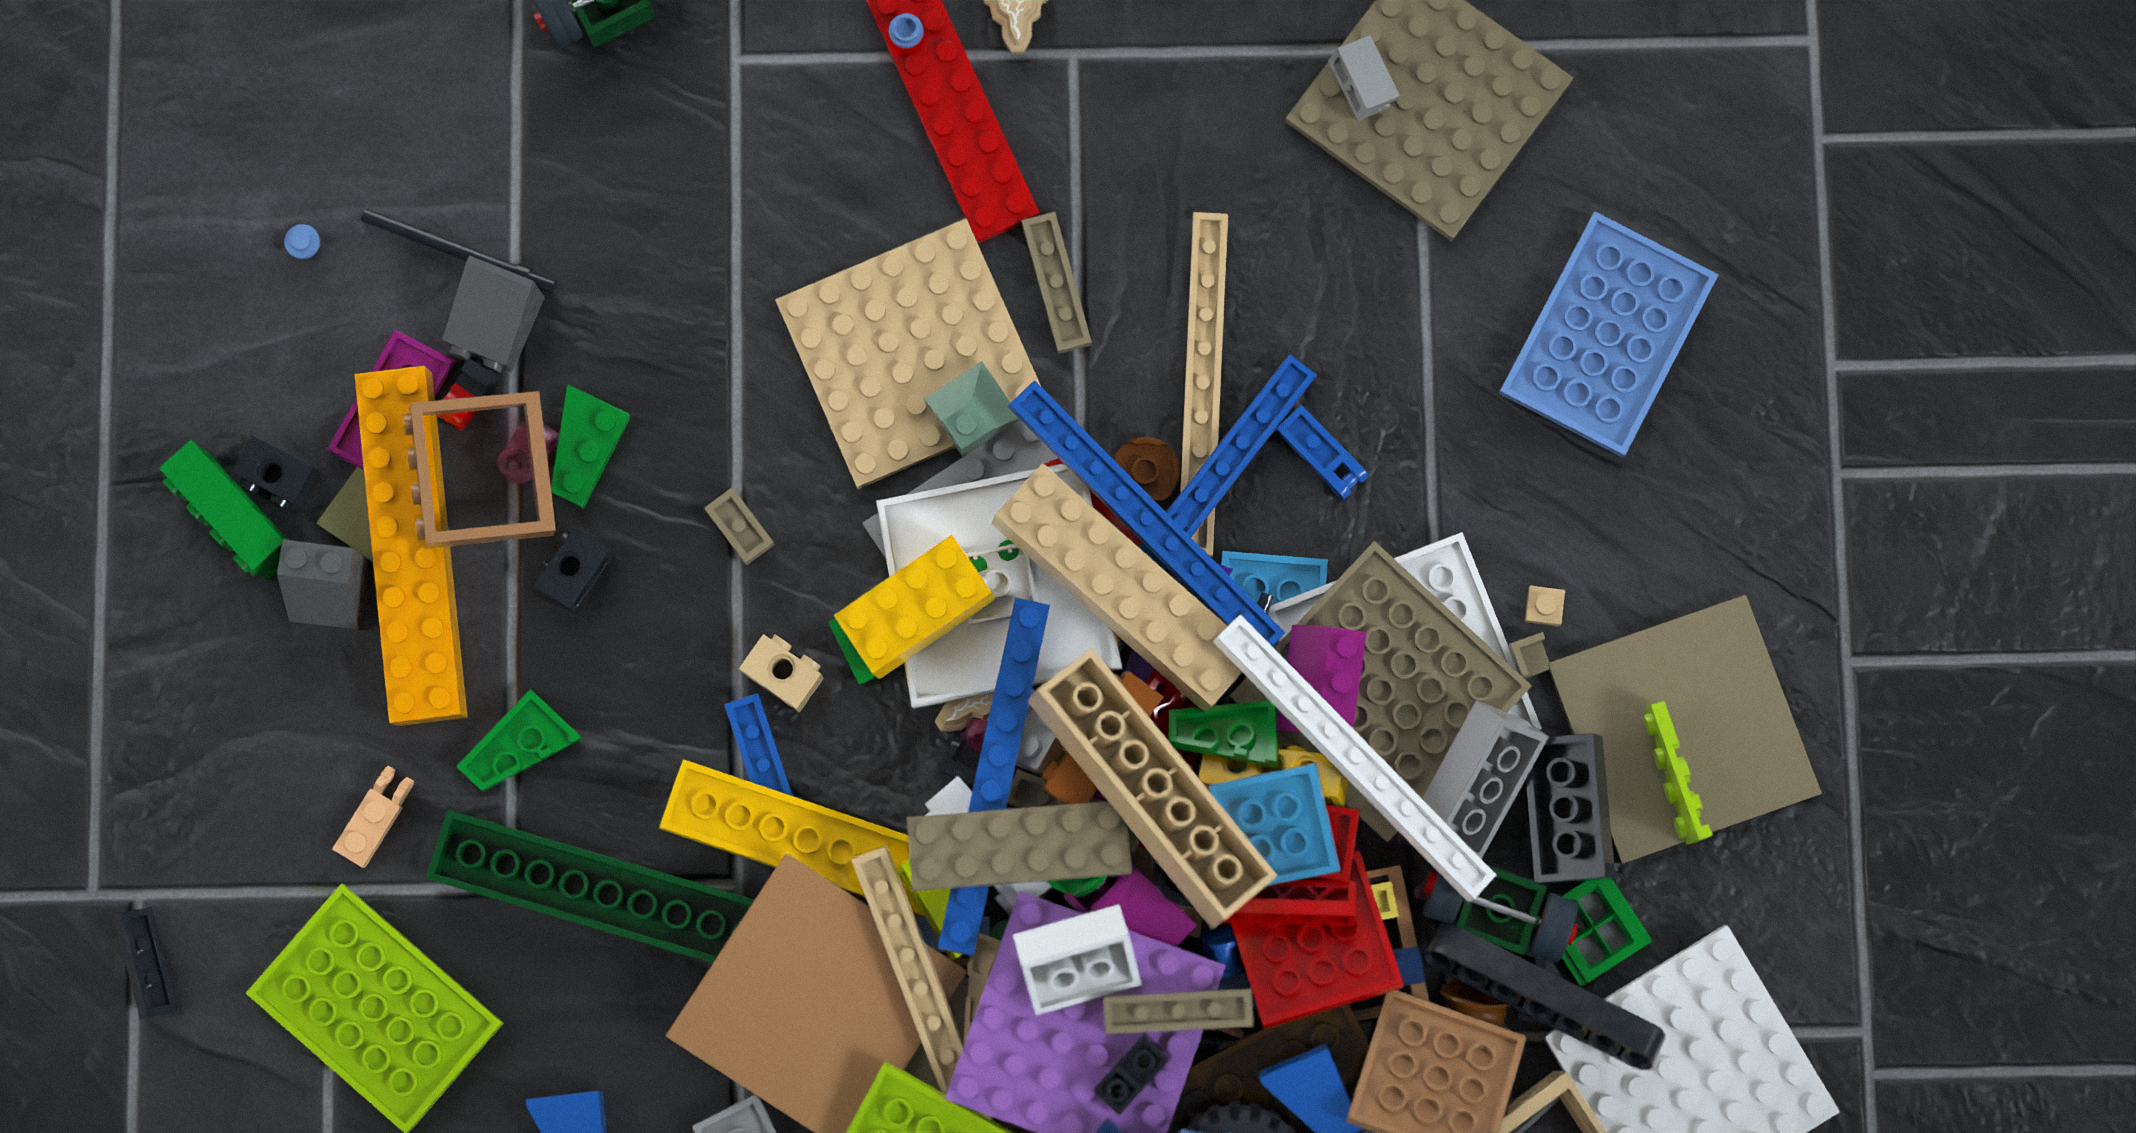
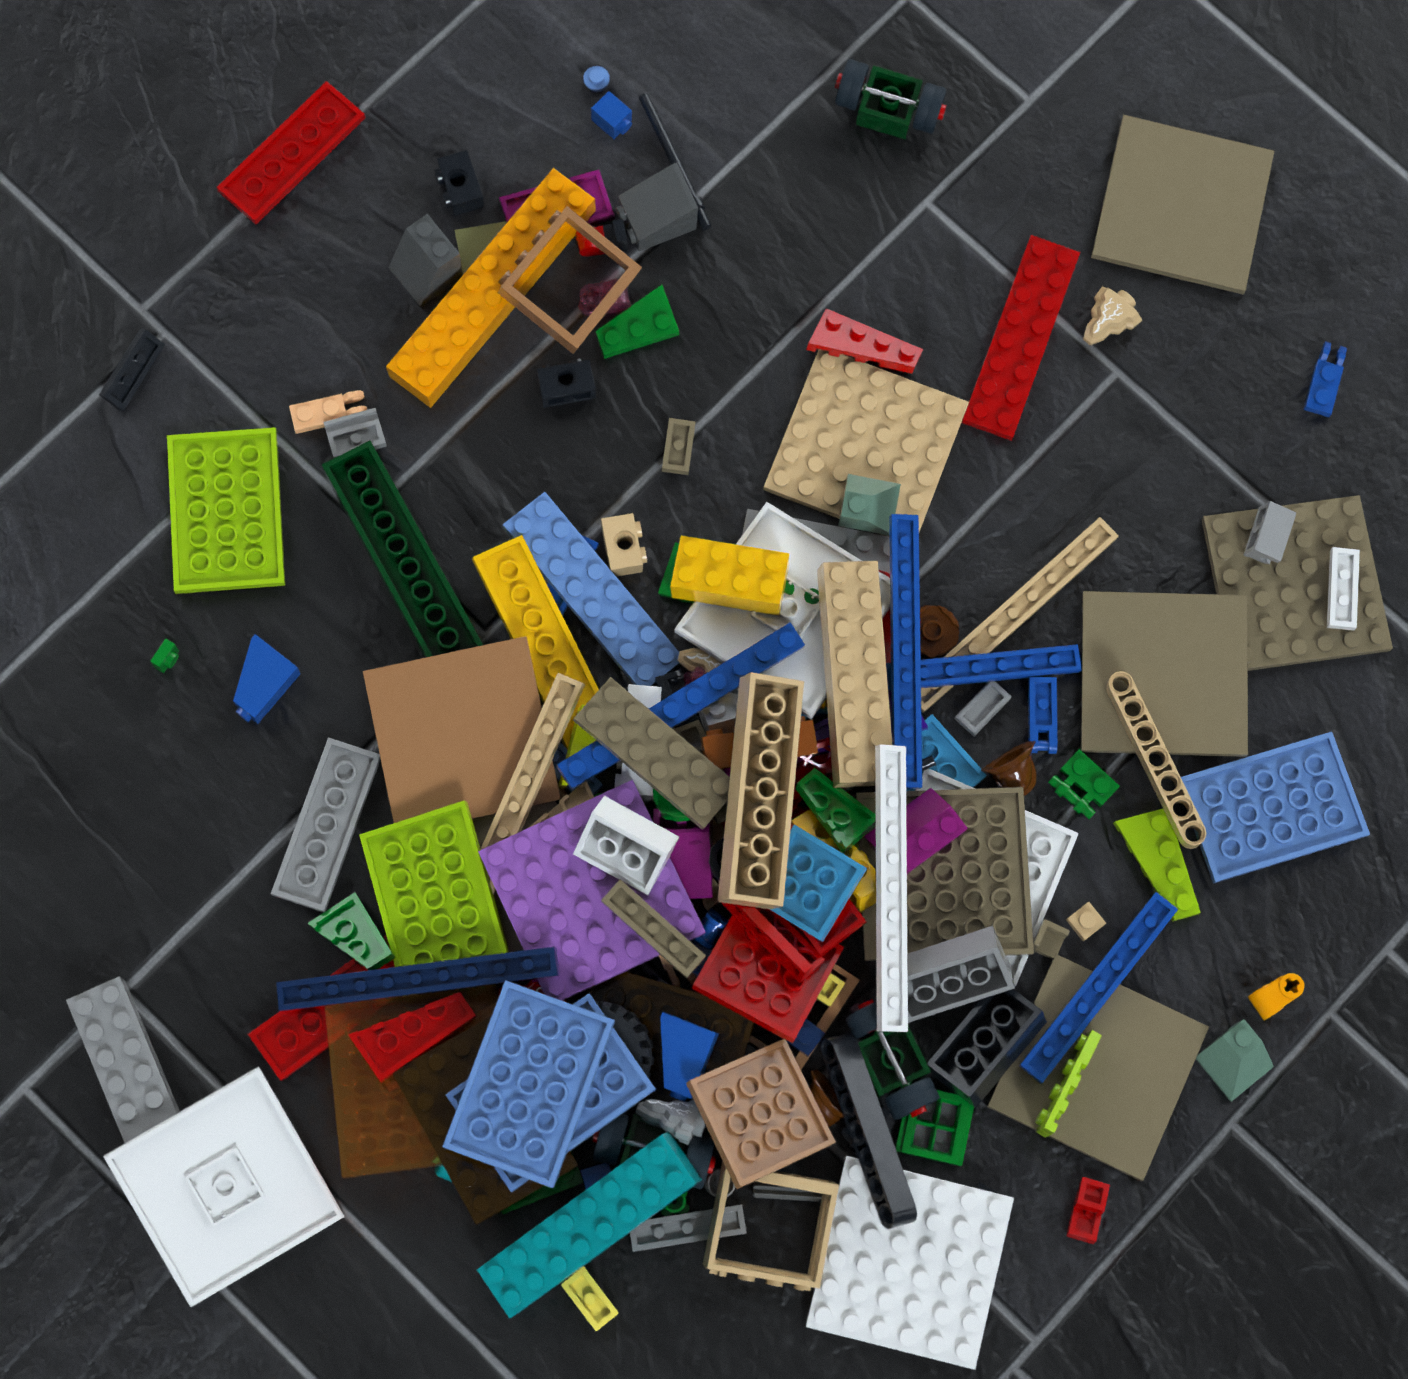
camera: 35 degrees right, 5 degrees down
(81, 601) = (291, 152): none -> red plate
(225, 507) = (414, 172): green brick -> none
(354, 264) = (612, 115): none -> blue brick
(421, 814) = (353, 430): none -> light grey plate
(517, 742) = (443, 445): green wing -> none
(796, 264) = (851, 338): none -> wing
(800, 745) = (593, 592): none -> medium blue plate
(906, 30) = (1035, 270): medium blue plate -> none
(1056, 282) = (984, 483): dark tan plate -> none
(1132, 1073) = (593, 937): black slope -> none
(1261, 498) = (982, 707): none -> light grey tile
(1345, 528) = (1014, 768): none -> reddish brown piece
(1394, 304) = (1184, 661): none -> dark tan tile
(1420, 469) = (1089, 779): none -> green plate
(1478, 66) = (1343, 588): none -> white plate
(1484, 395) = (1155, 746): none -> tan beam
(1548, 478) = (1161, 859): none -> lime wing
(1616, 658) = (1098, 987): none -> blue plate
(1776, 512) = (1273, 997): none -> light orange piece
(1796, 601) = (1235, 1060): none -> sand green slope
(1799, 869) = (1087, 1210): none -> red slope

